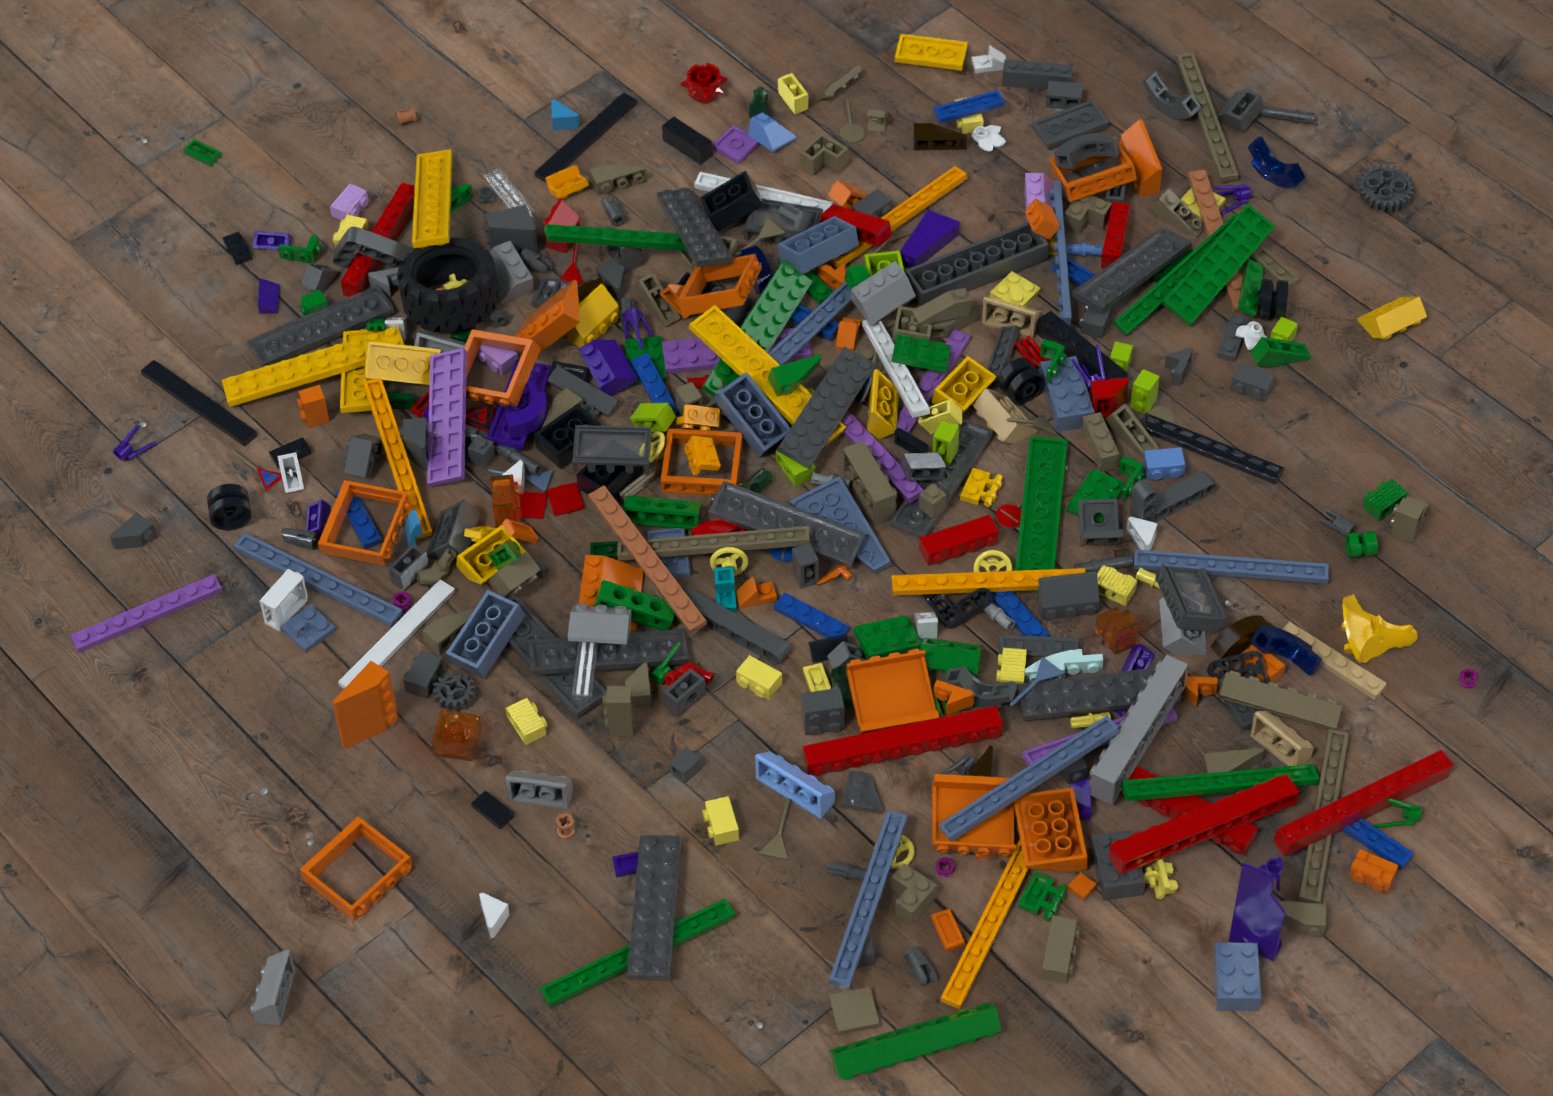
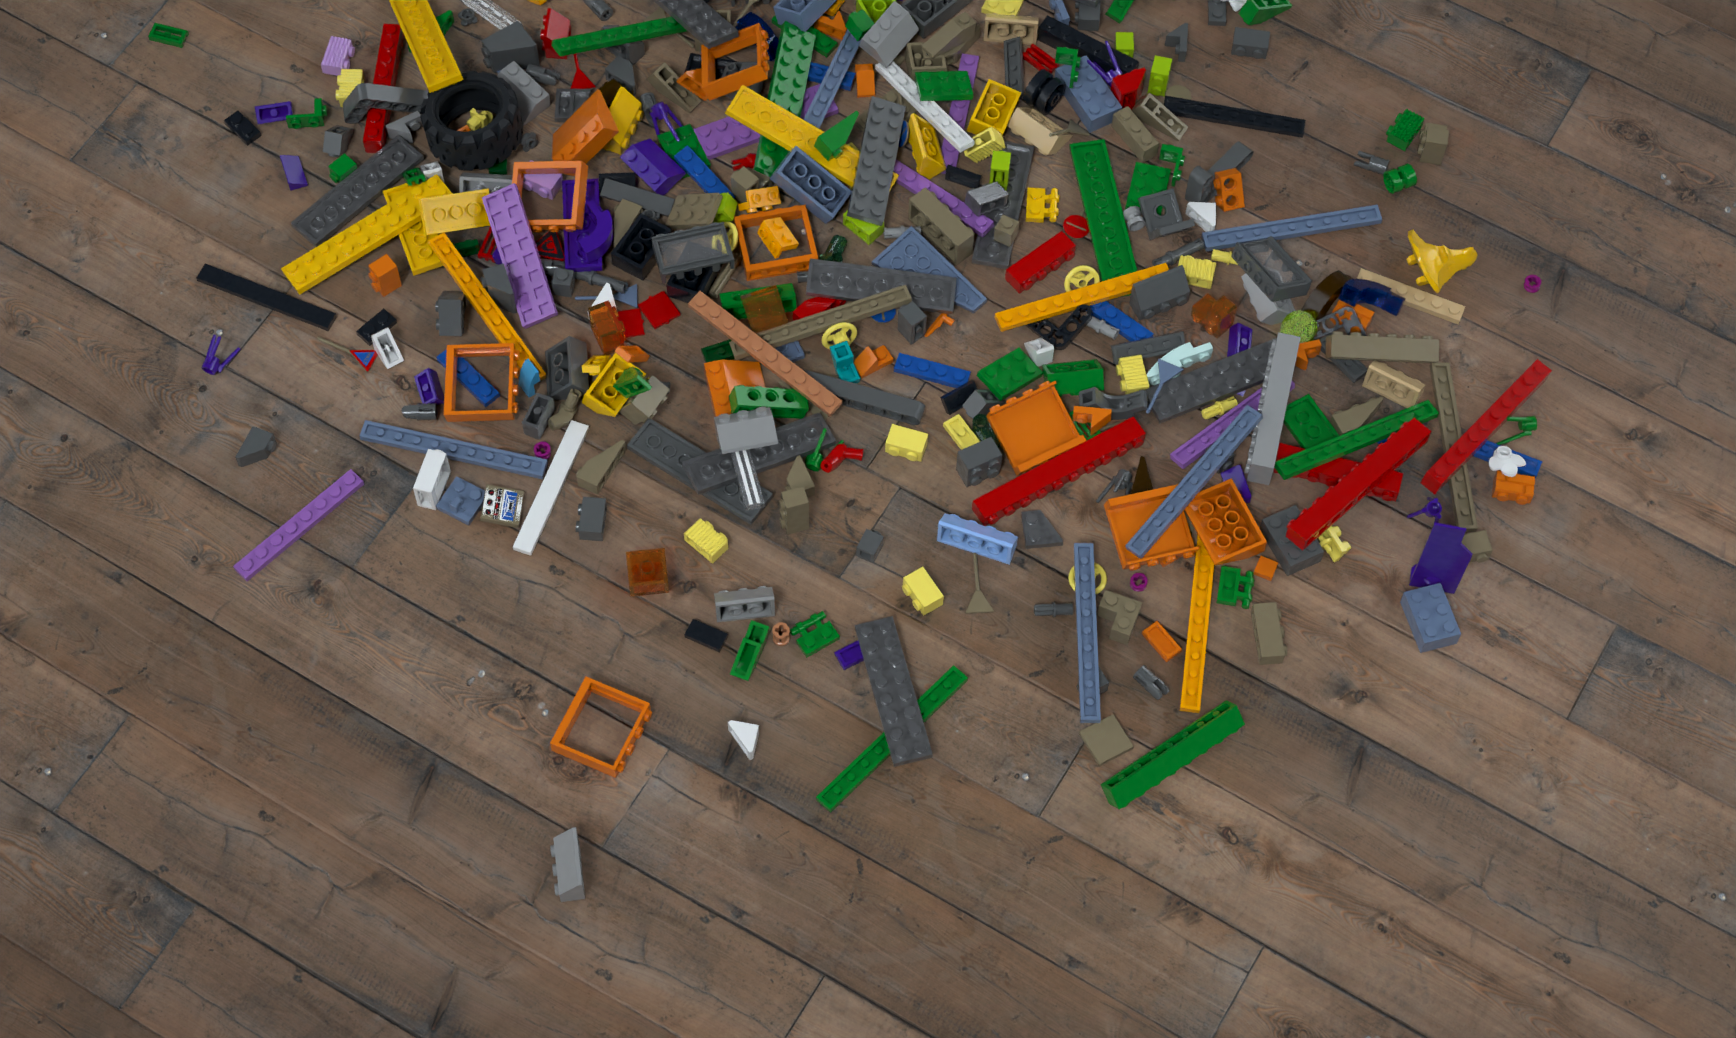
camera: 20 degrees left, 10 degrees up
(229, 507) = (342, 398): black wheel -> none
(342, 641) = (502, 506): none -> tile
(365, 706) = (557, 566): orange slope -> none
(455, 693) = (637, 529): dark grey gear -> none
(485, 634) = (639, 465): sand blue brick -> none
(529, 834) = (750, 650): none -> green slope
(599, 840) = (816, 639): none -> green plate
(631, 412) = (693, 210): none -> dark tan plate
(661, 518) = (764, 309): none -> clear orange brick
(684, 692) = (844, 475): dark grey brick -> none
(1069, 520) = (1133, 218): none -> light grey wheel
(1164, 463) = (1199, 142): medium blue brick -> none
(1176, 754) = (1308, 423): none -> green plate
(1180, 513) = (1233, 188): none -> orange brick
(1202, 661) = (1299, 324): none -> clear neon green tile
(1371, 842) = (1506, 461): none -> white plate

